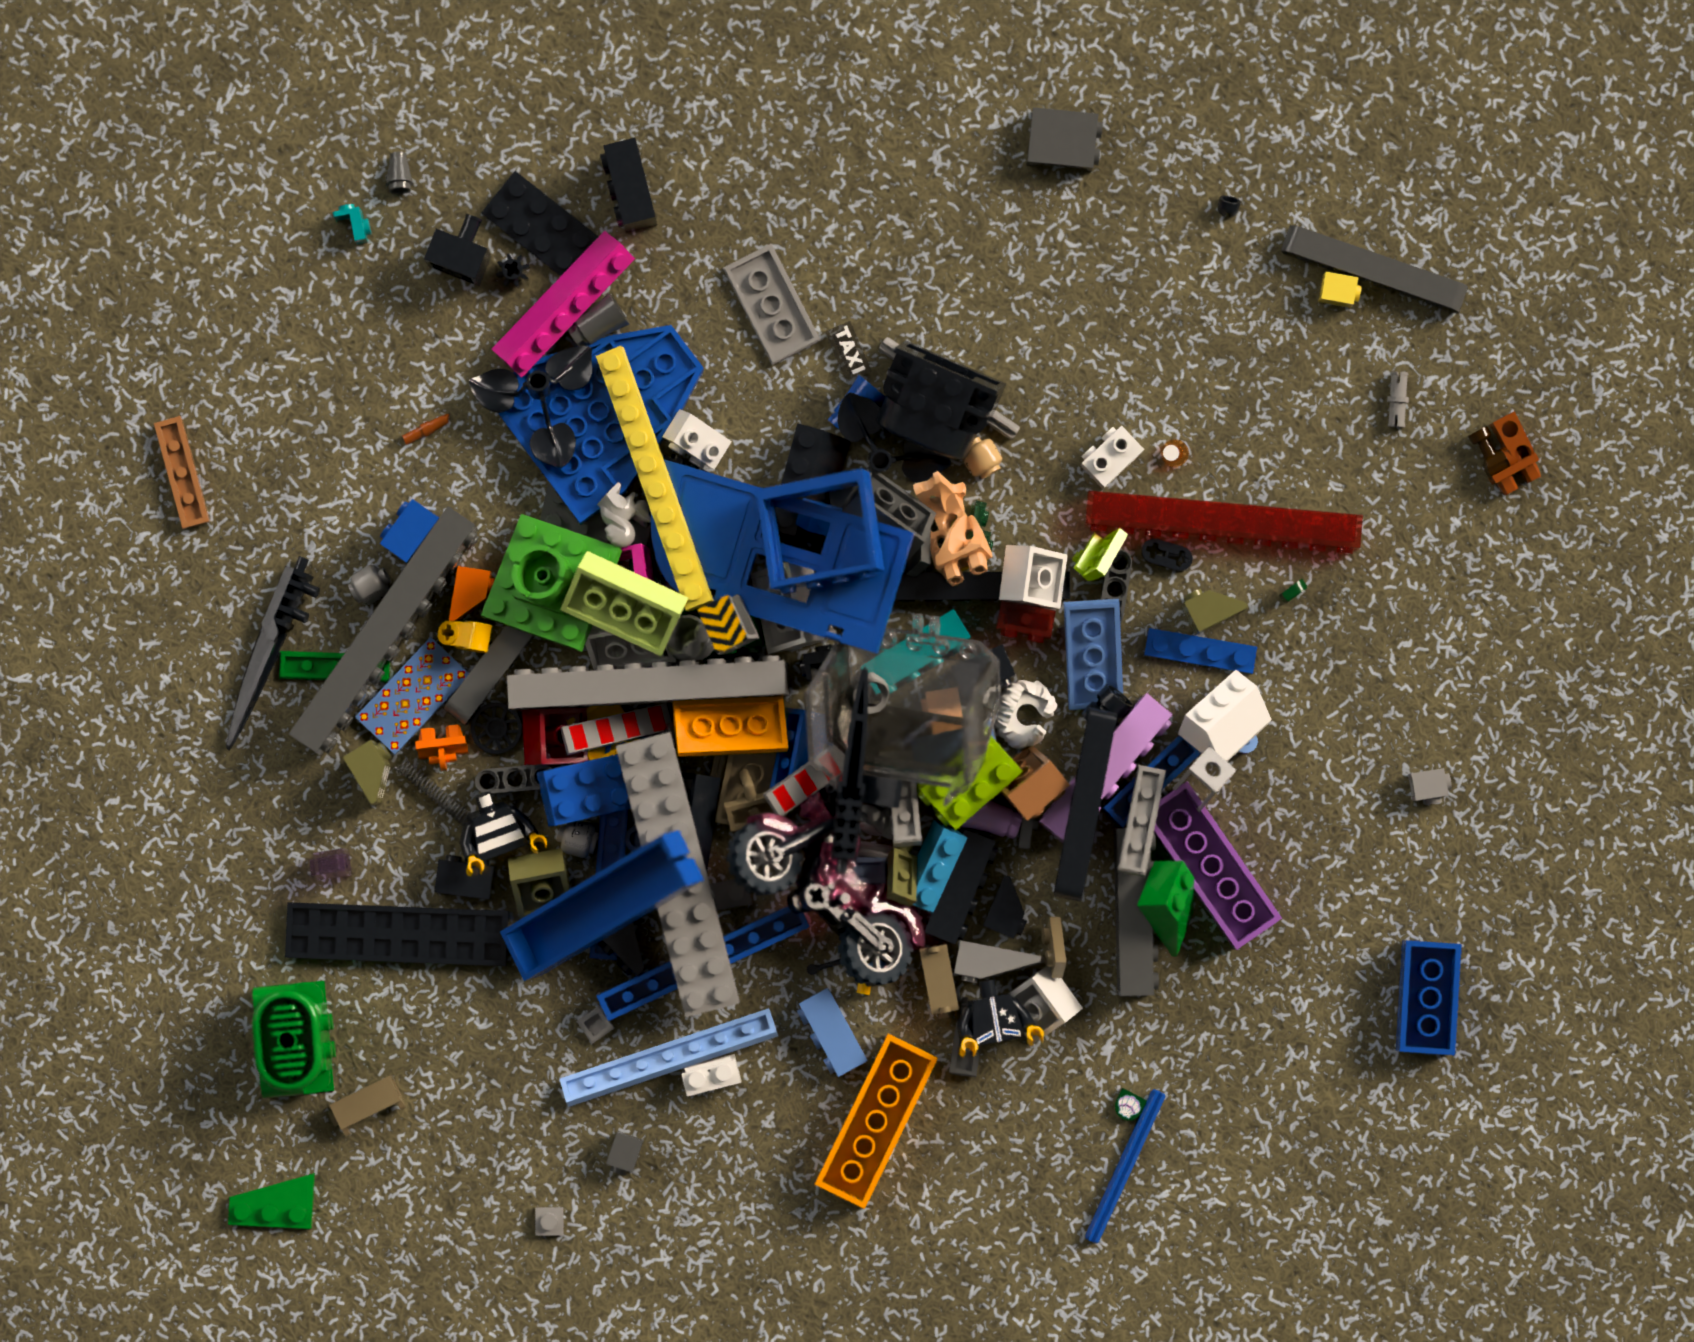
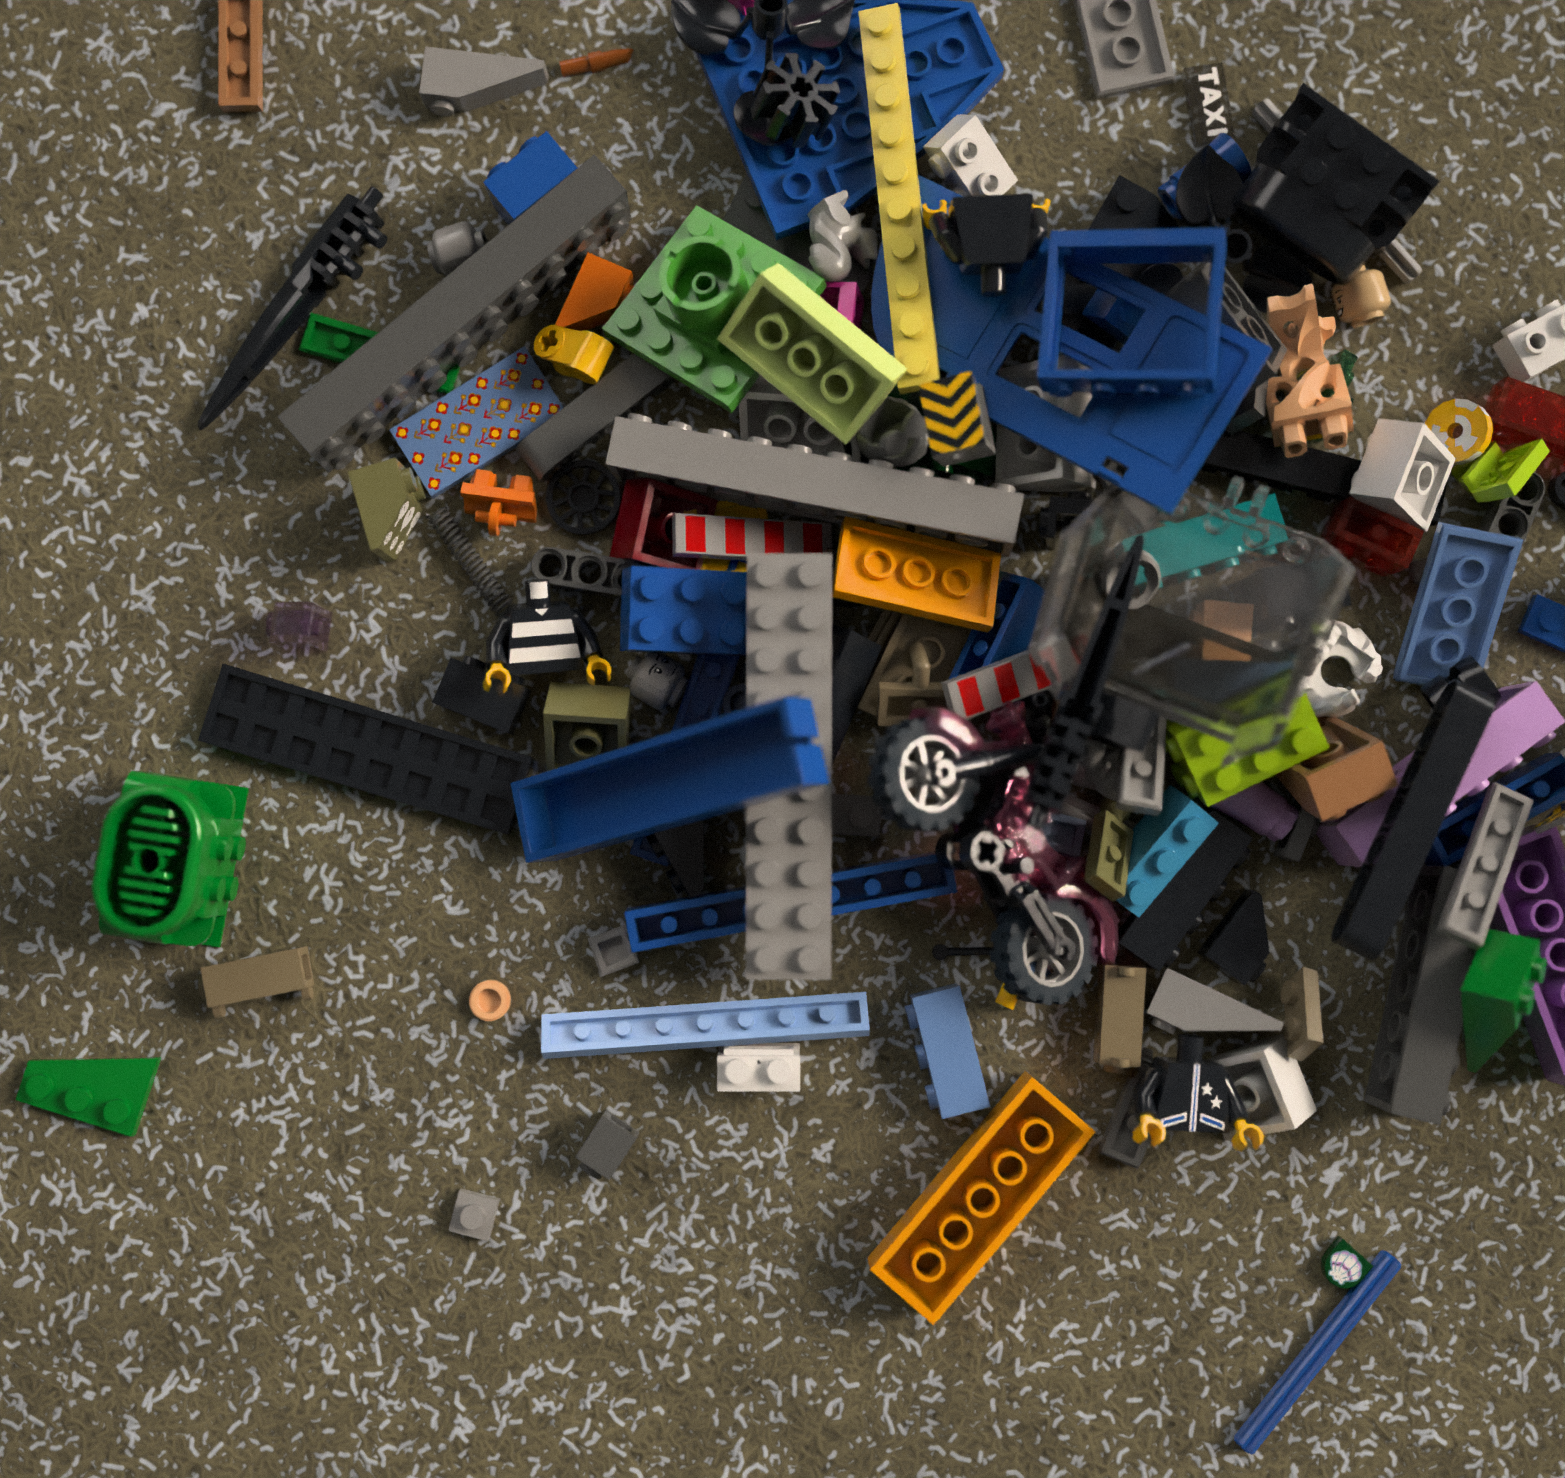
camera: 10 degrees right, 0 degrees up
(344, 467) = (472, 79): none -> light grey slope
(522, 1078) = (489, 1000): none -> light nougat tile
(579, 437) = (794, 100): none -> black gear
(719, 497) = (989, 235): none -> black torso
(1076, 529) = (1475, 423): none -> yellow piece

